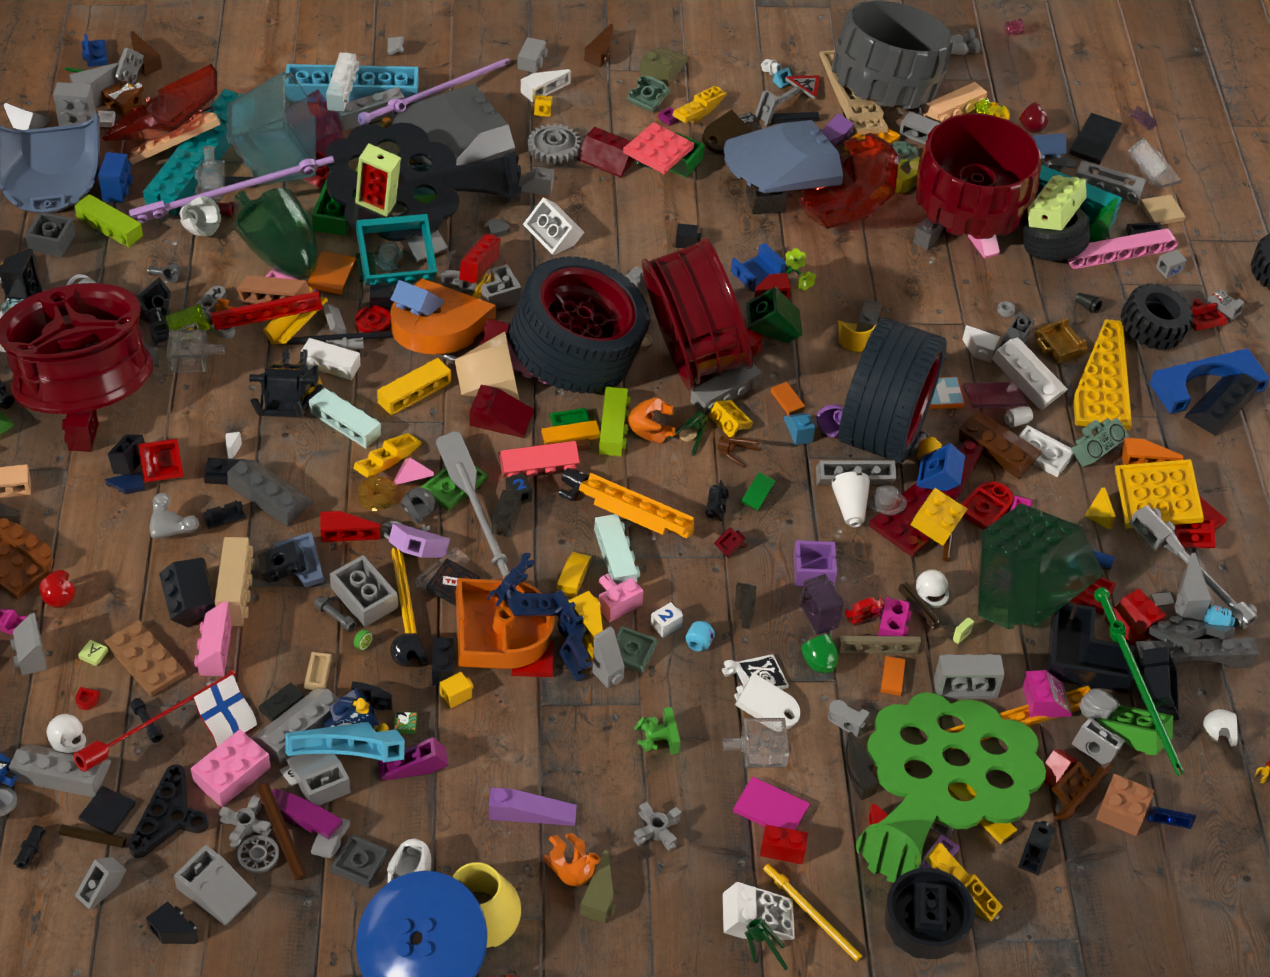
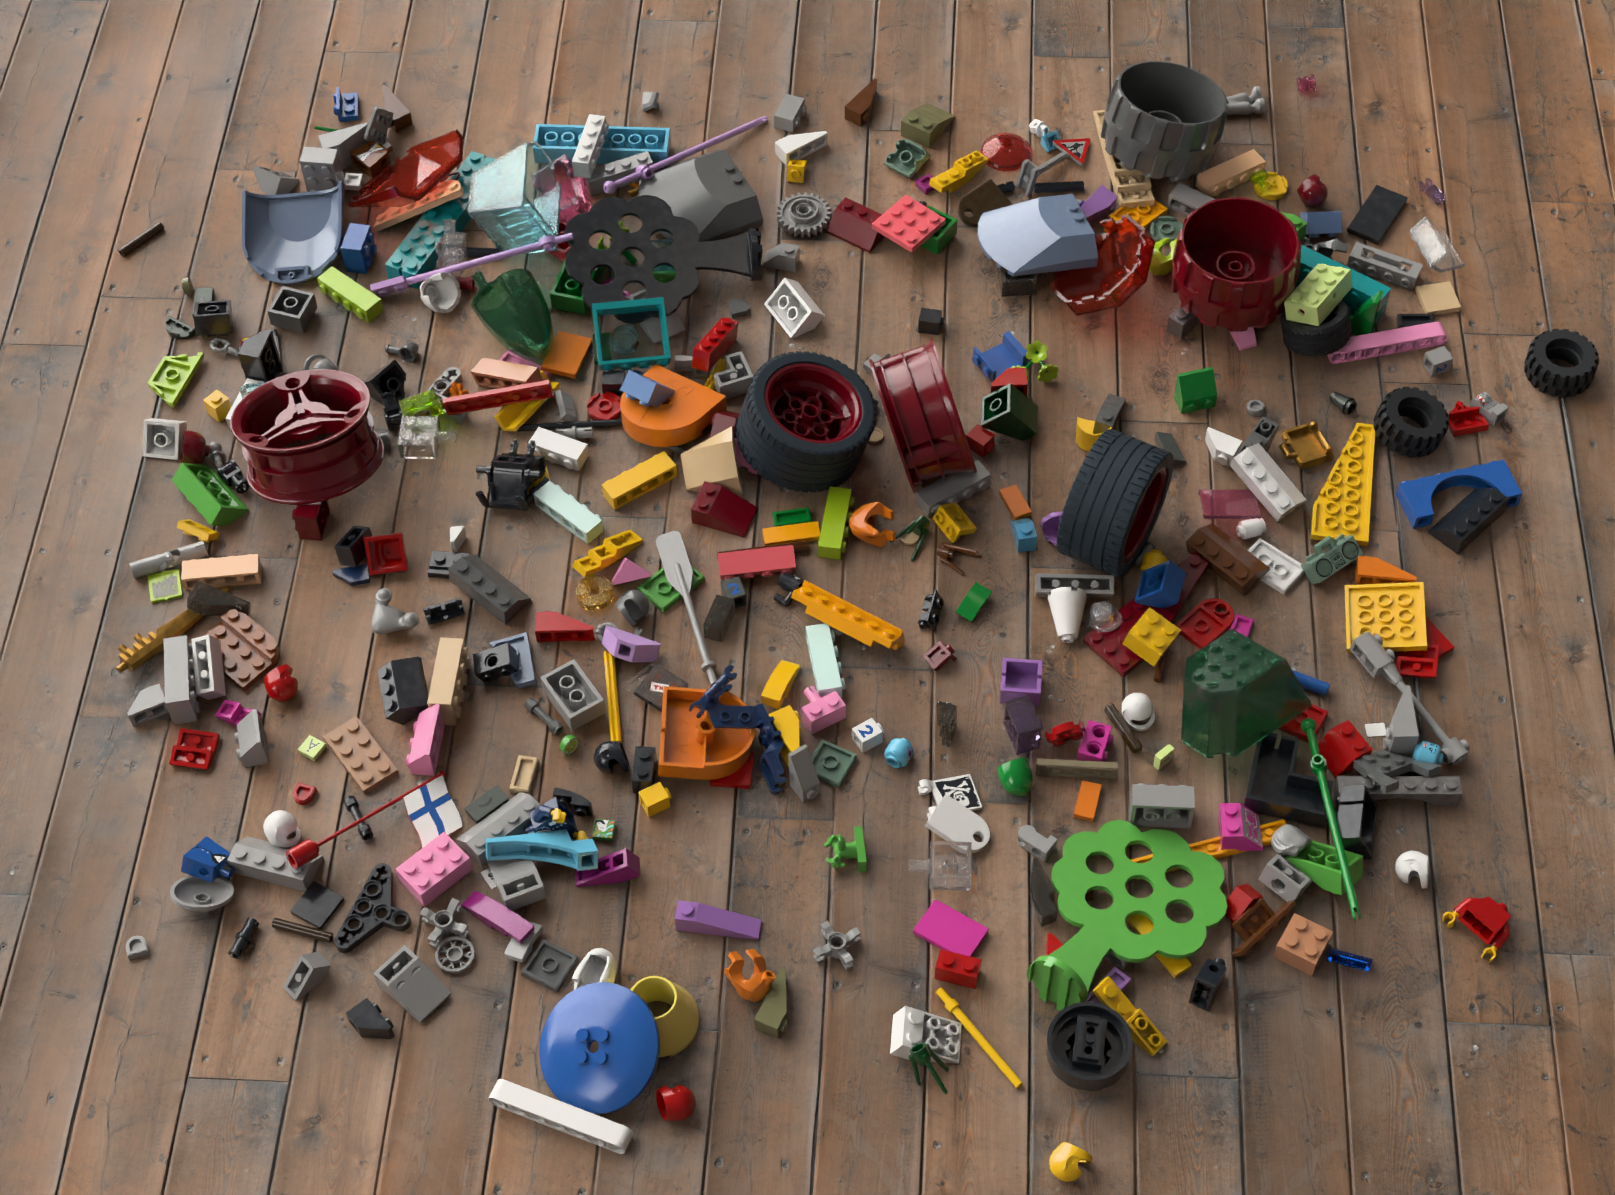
camera: 10 degrees right, 5 degrees up
(281, 831) = (477, 934): reddish brown axle -> none
(377, 179) = (614, 262): yellowish green brick -> none
(741, 87) = (1006, 151): none -> clear red dish
(947, 394) = (1179, 501): tile -> none
(949, 292) = (1195, 390): none -> green slope
(1101, 510) = (1323, 633): yellow slope -> none

